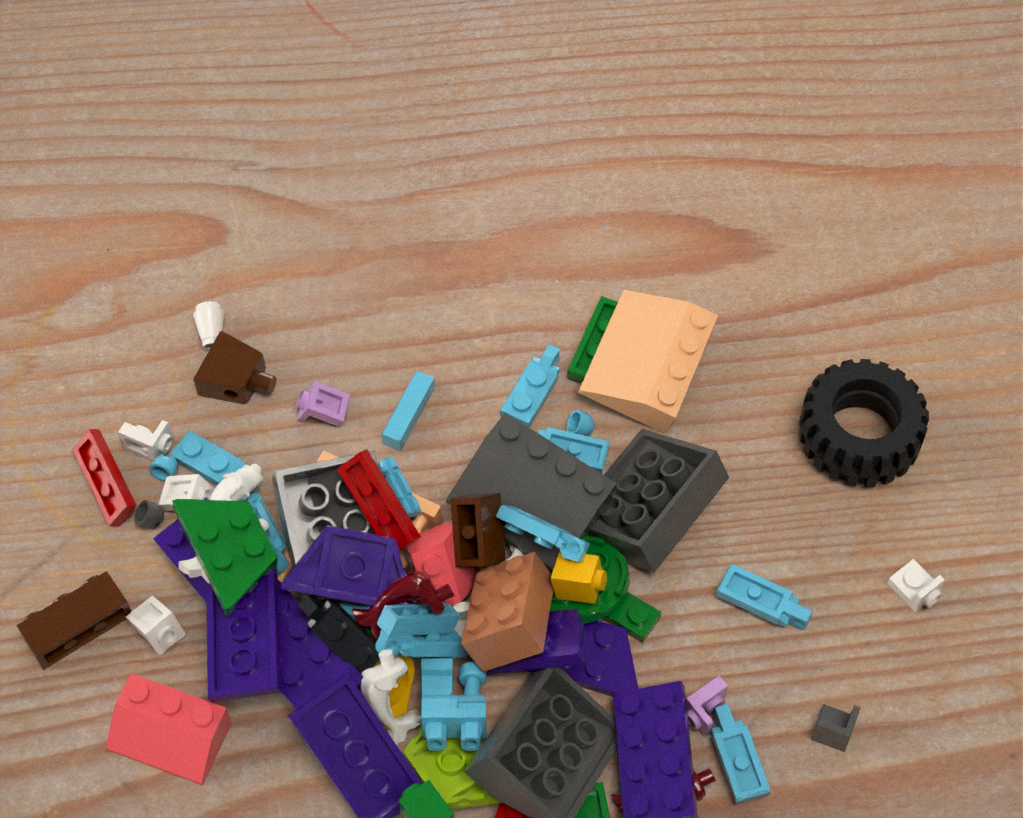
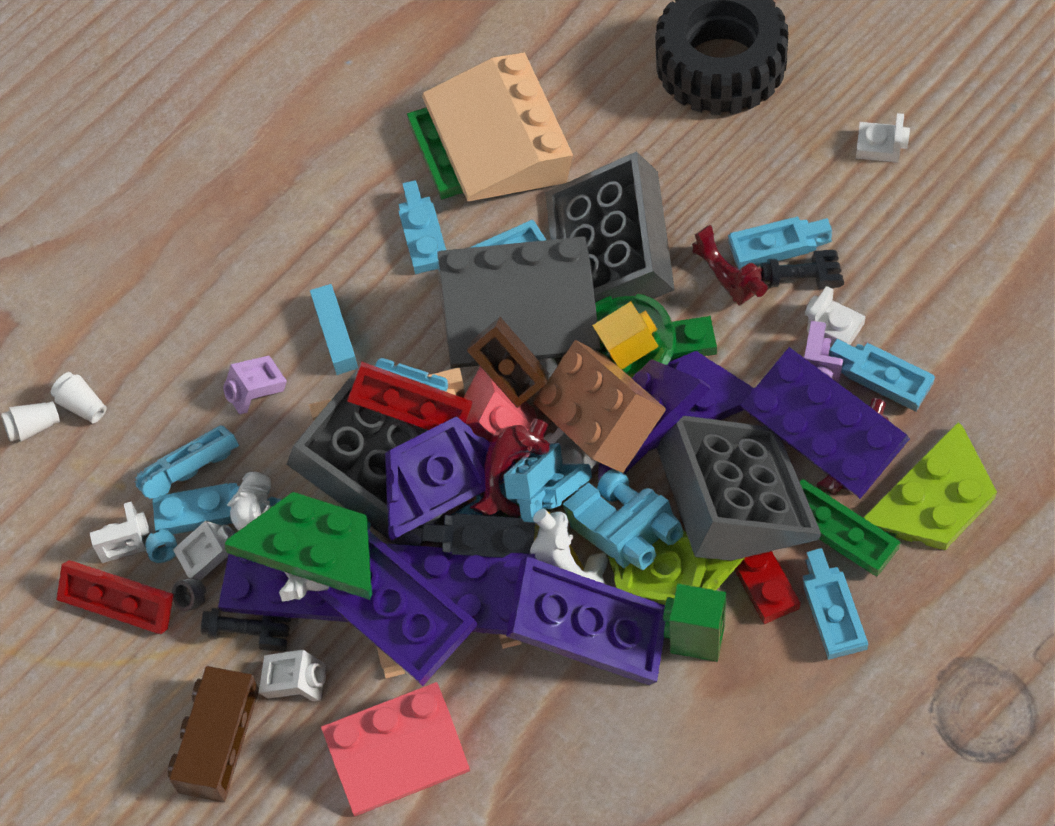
camera: 35 degrees left, 0 degrees up
(145, 546) = (213, 623): none -> black hinge
(167, 315) = (28, 420): none -> white cone
(230, 423) = (185, 462): none -> medium azure hinge
(232, 371) = (143, 417): reddish brown torso -> none
(545, 532) = (571, 318): medium azure hinge -> none
(580, 423) = (491, 225): medium azure hinge -> none
(705, 606) = (739, 283): none -> dark red animal
(744, 688) = (840, 320): none -> white bracket
(773, 644) = (823, 268): none -> black hinge
(835, 727) = (933, 290): dark grey panel -> none

